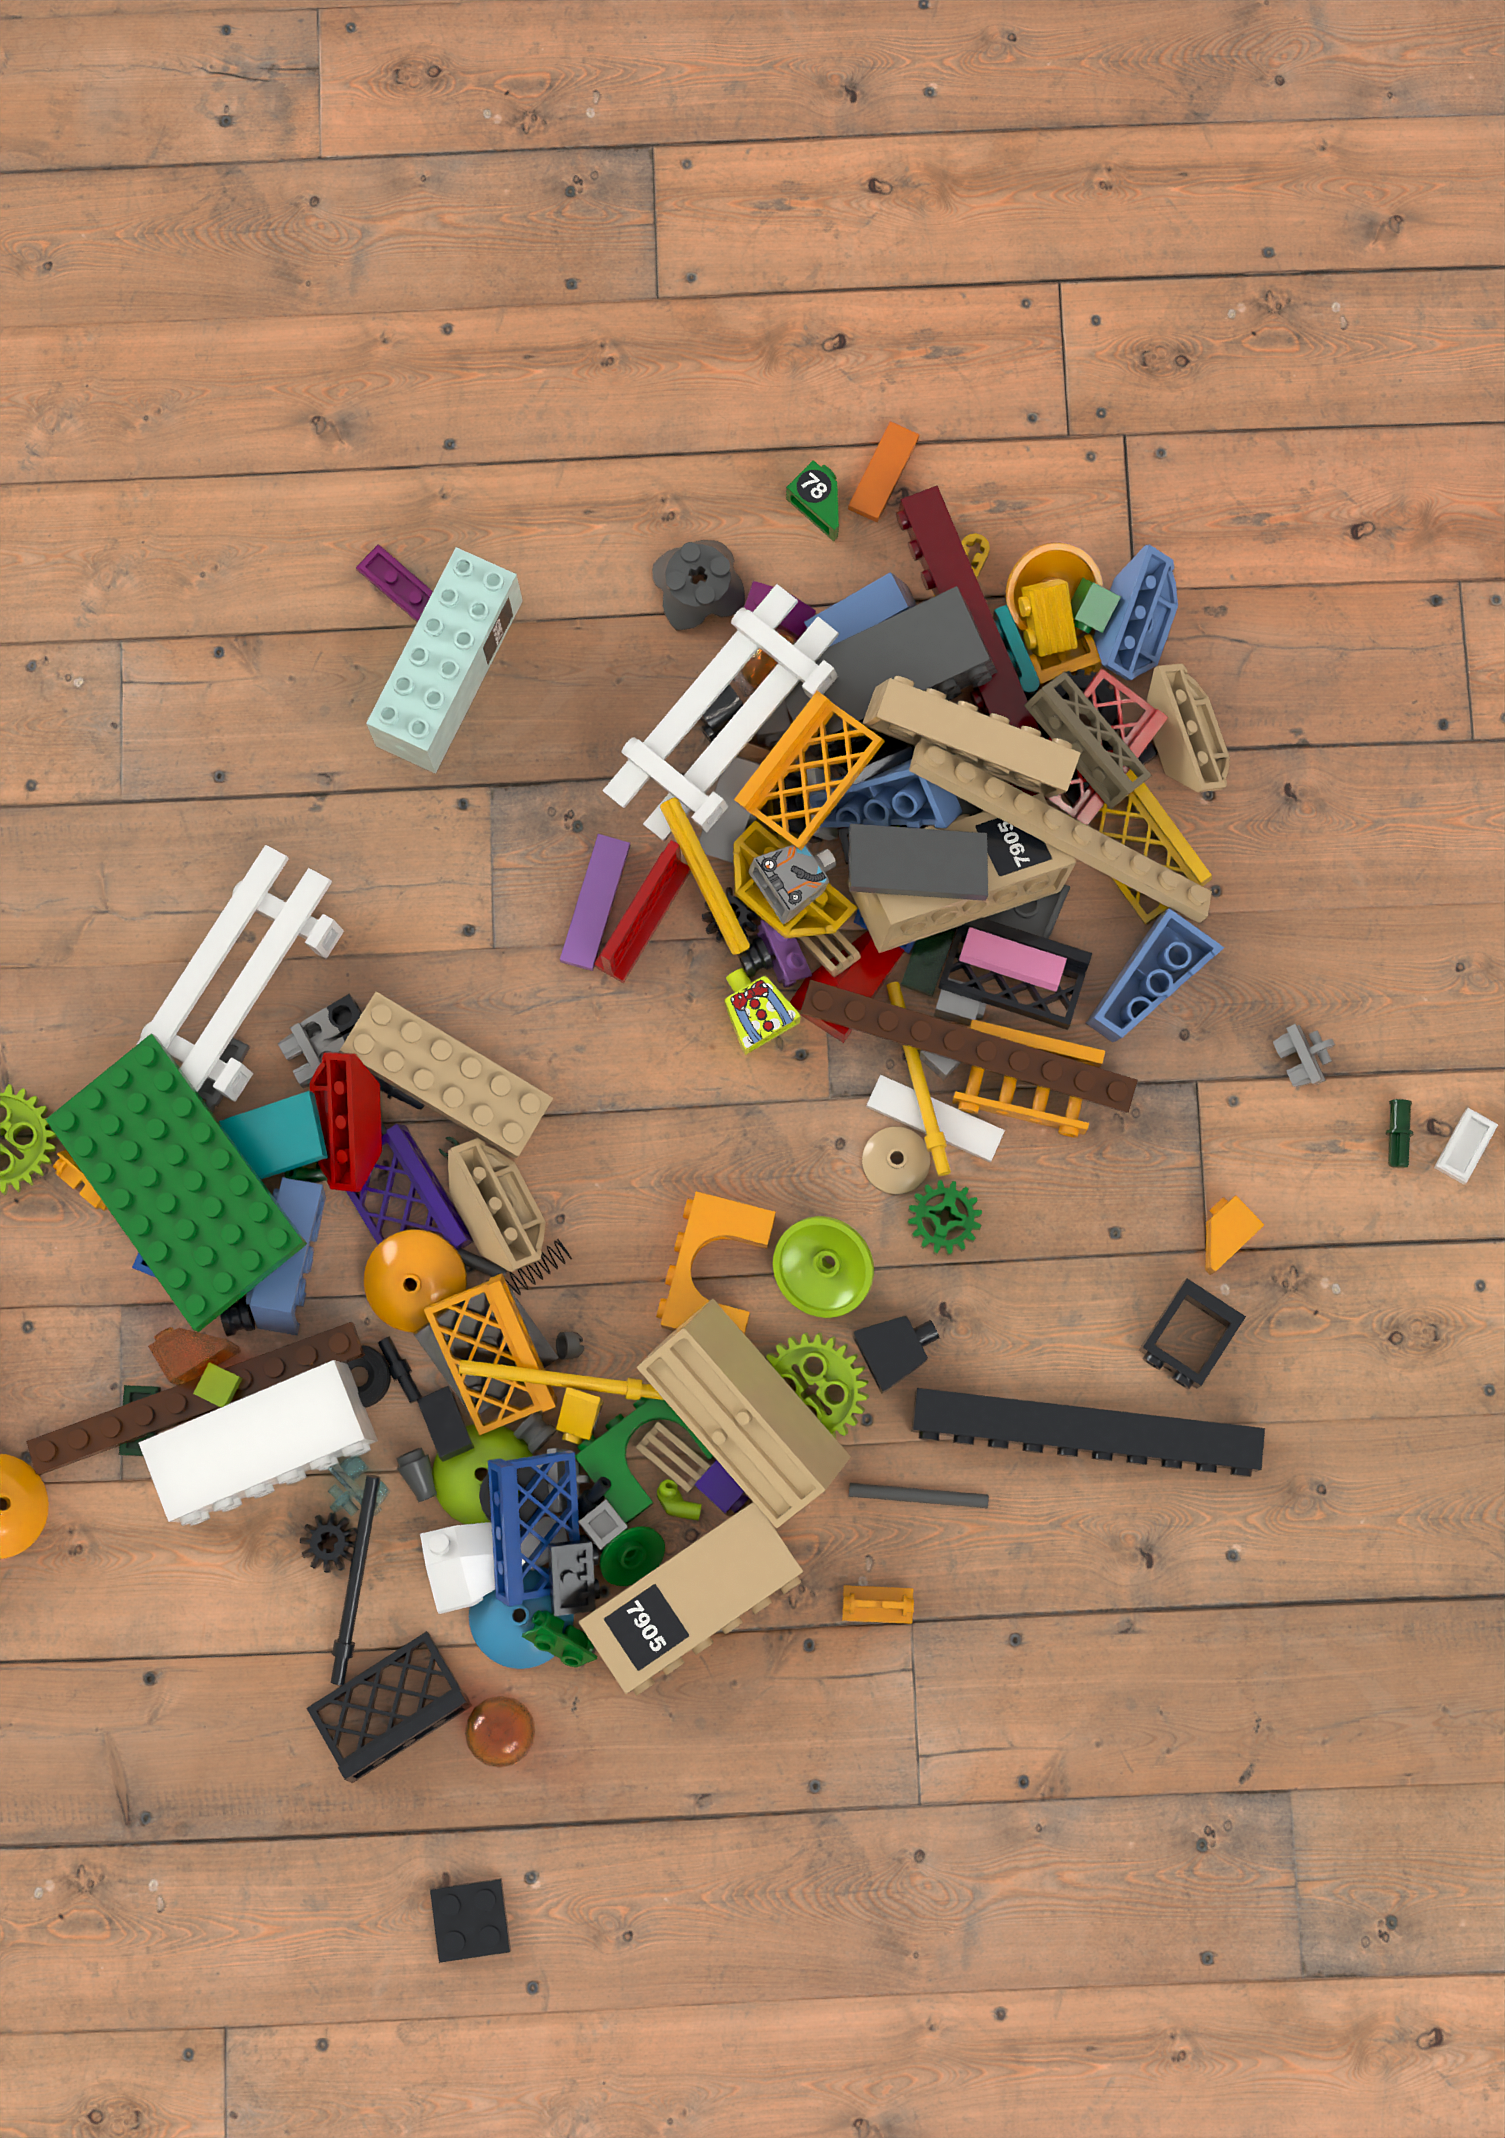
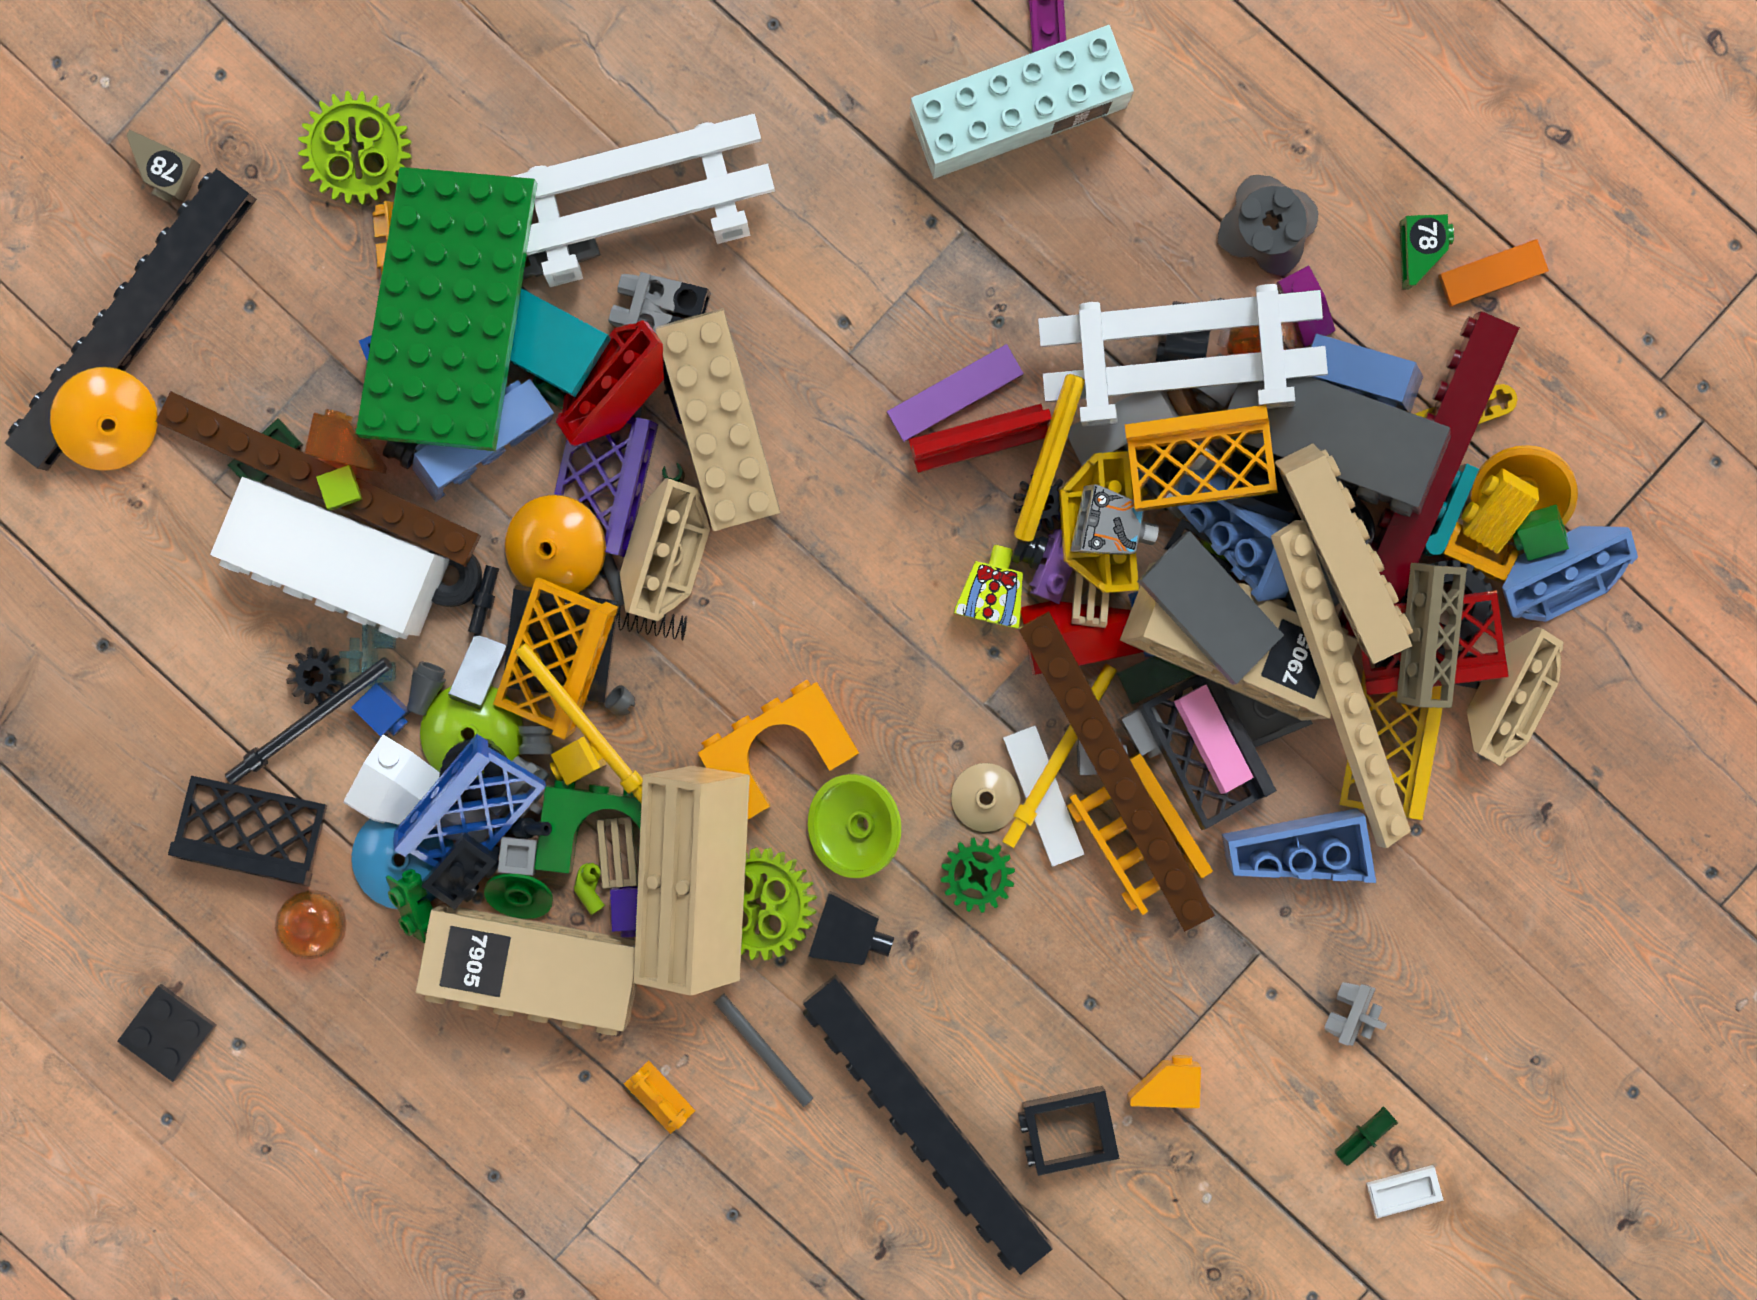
camera: 45 degrees right, 10 degrees up
(402, 1520) = (382, 710): none -> blue brick

